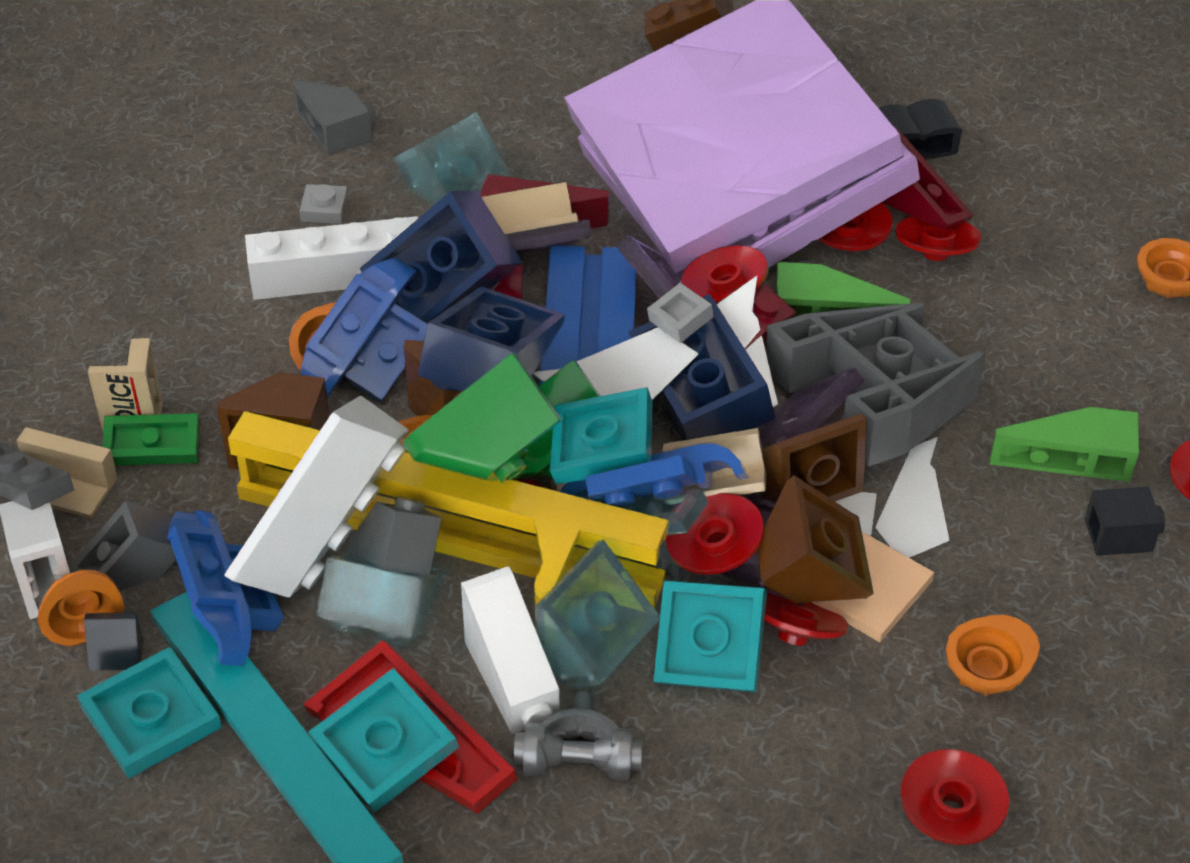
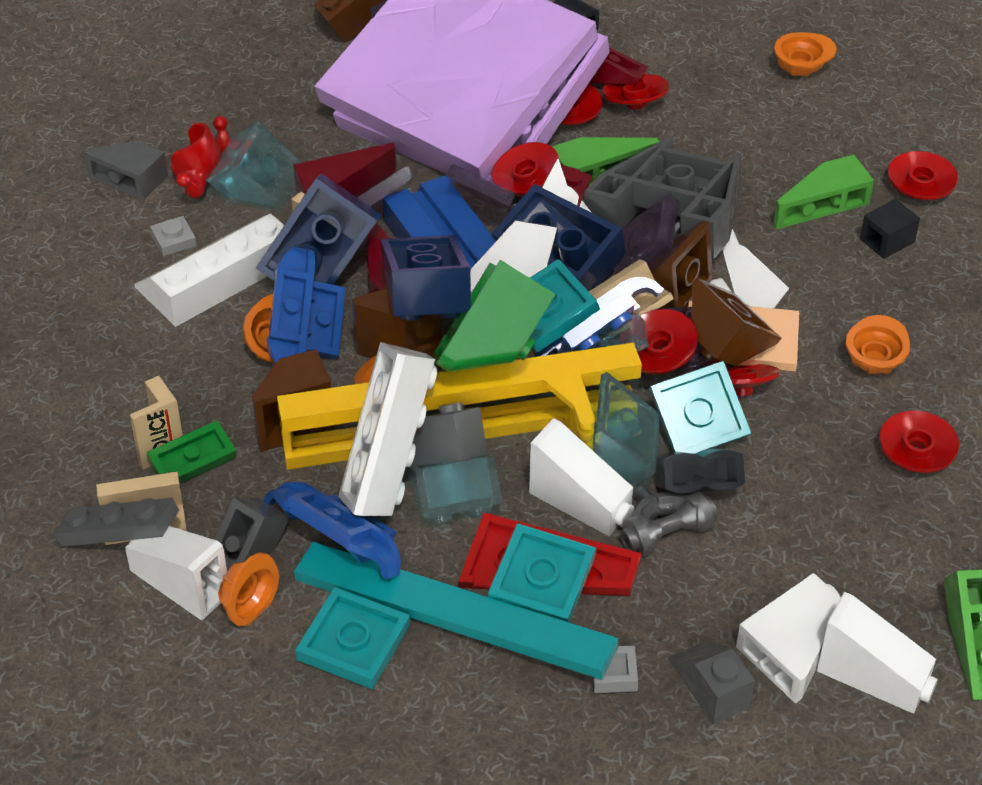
camera: 30 degrees left, 0 degrees up
(113, 640) = (286, 603): black slope -> none
(400, 130) = (195, 162): none -> red piece
(531, 208) = (358, 172): tan panel -> none
(667, 712) = (691, 472): none -> black brick
(680, 312) = (528, 203): light grey plate -> none

